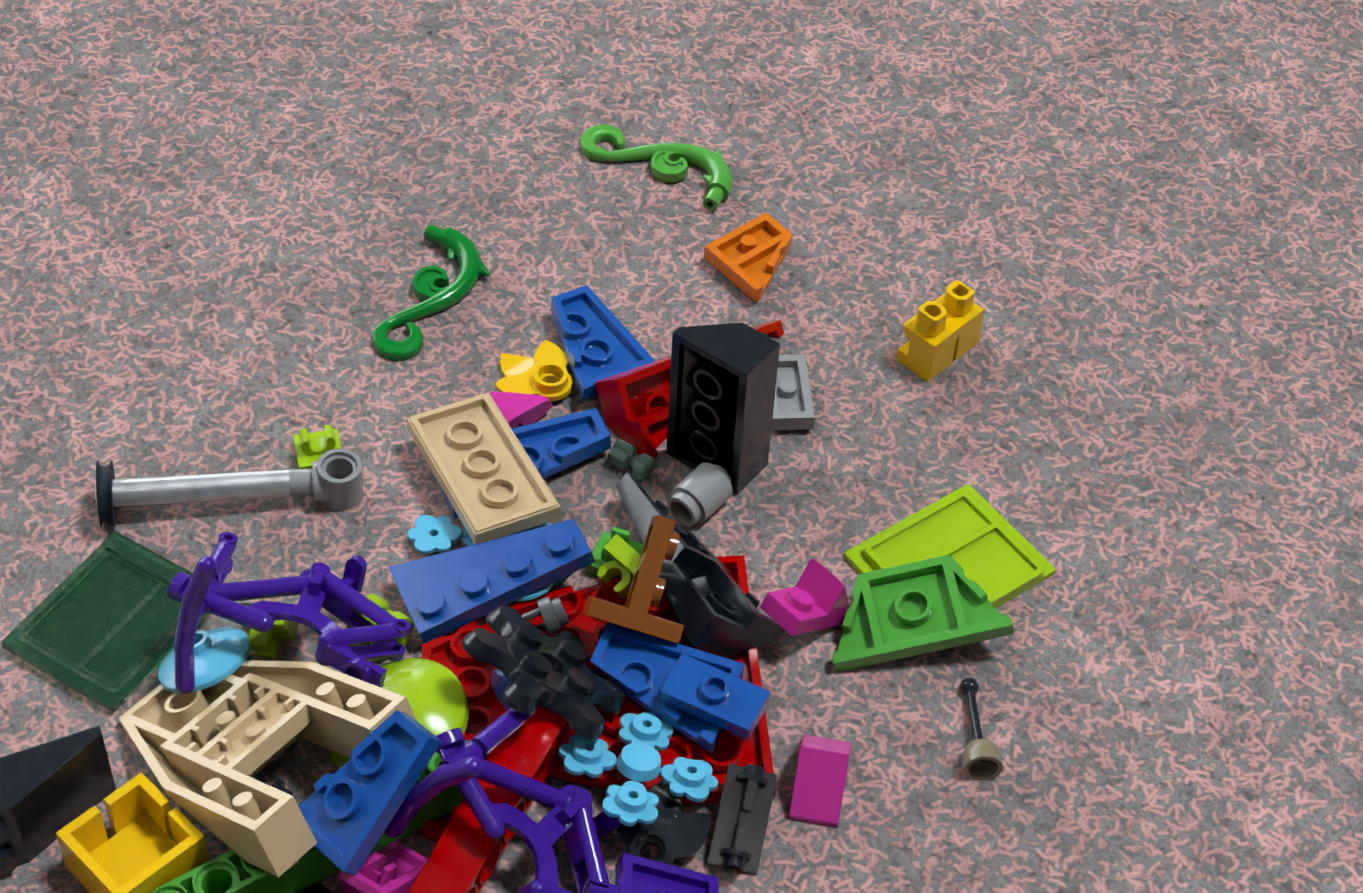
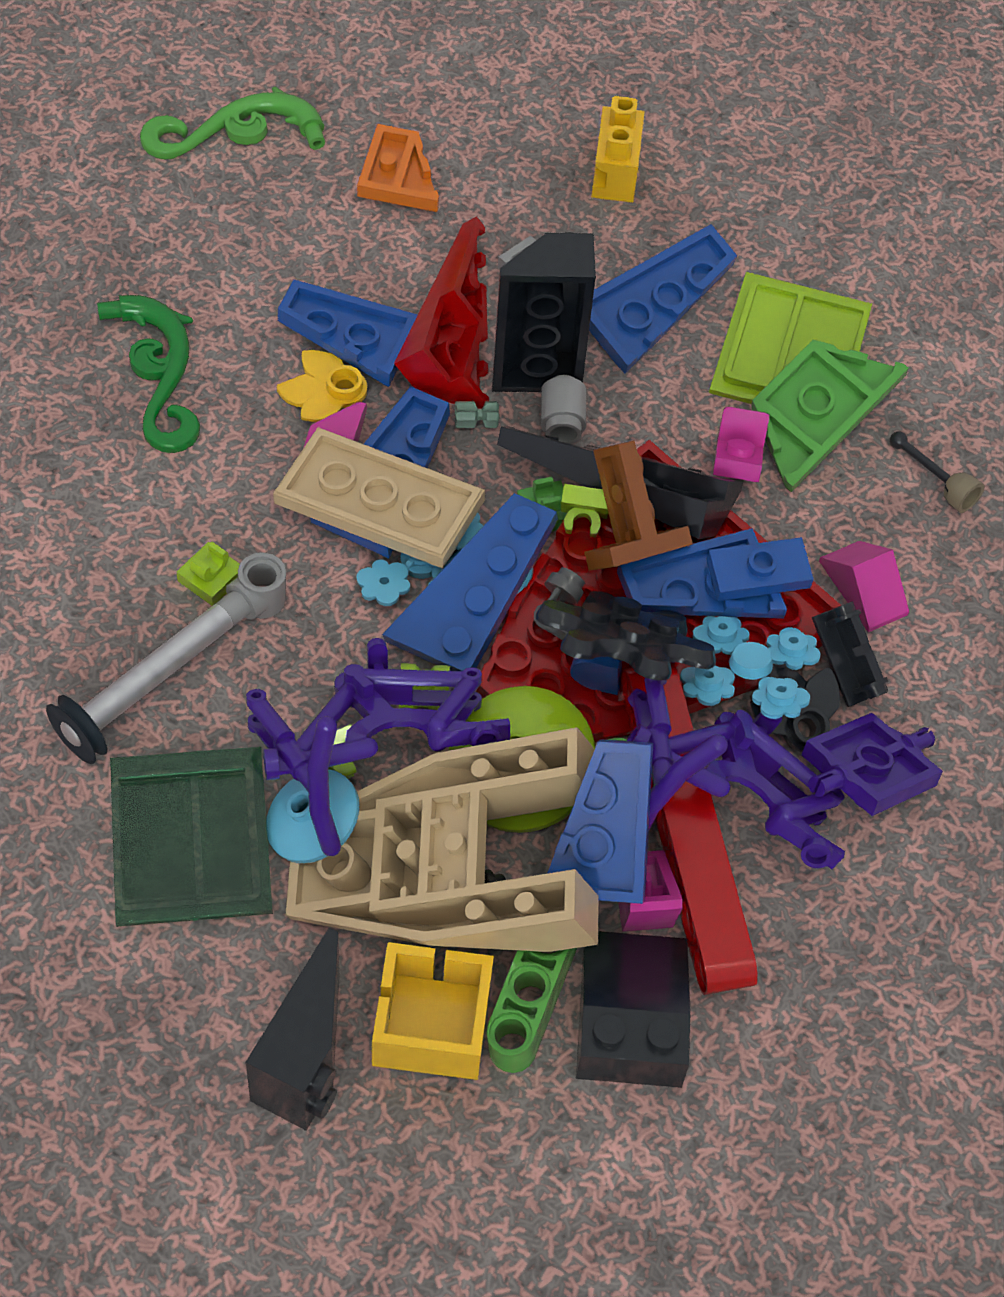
camera: 40 degrees left, 10 degrees up
(860, 456) = (653, 296): none -> blue wing

